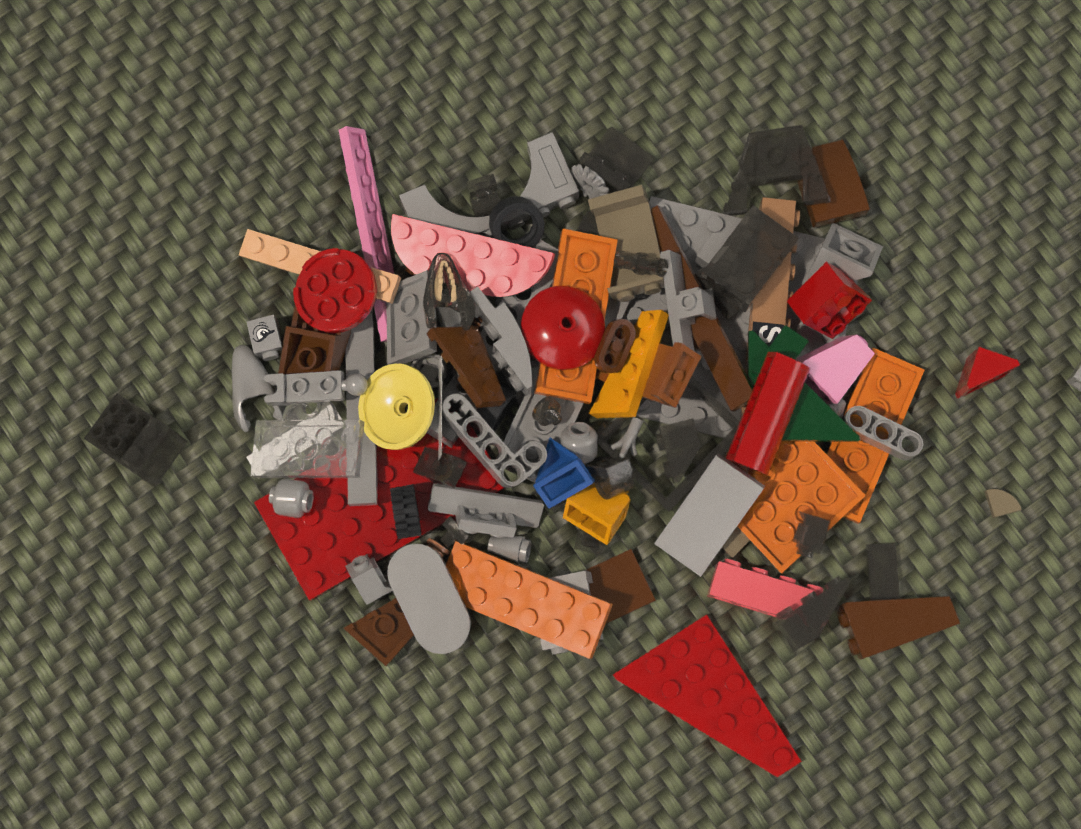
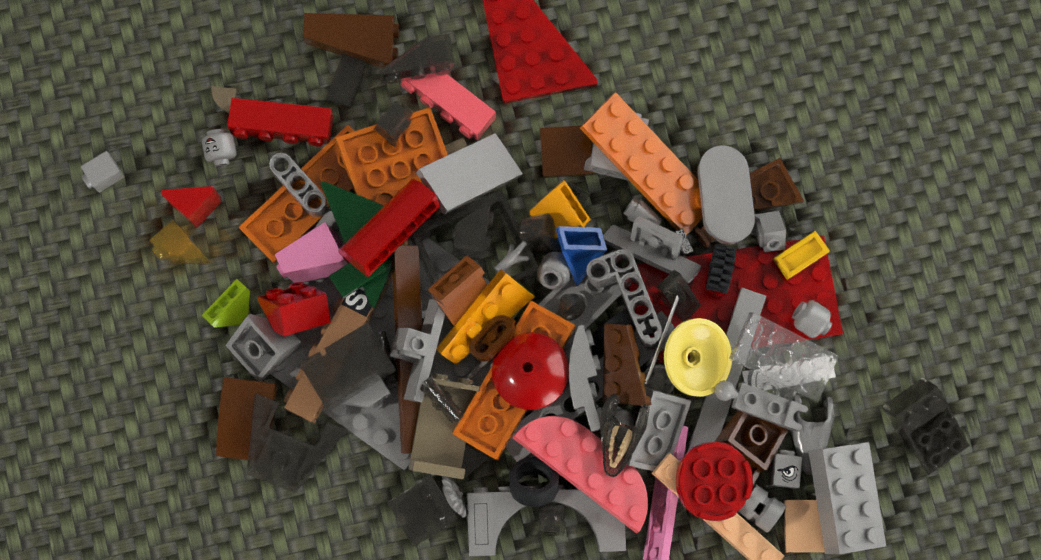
camera: 160 degrees left, 0 degrees up
(193, 330) = (847, 498): none -> light grey brick
(221, 295) = (802, 526): none -> light nougat tile
(275, 290) = (769, 513): none -> light grey wheel
(325, 565) = (801, 255): none -> yellow tile
(896, 287) = (230, 307): none -> lime slope
(932, 496) = (280, 121): none -> red brick
(977, 326) = (176, 246): none -> clear yellow slope
(983, 445) = (219, 147): none -> light grey head

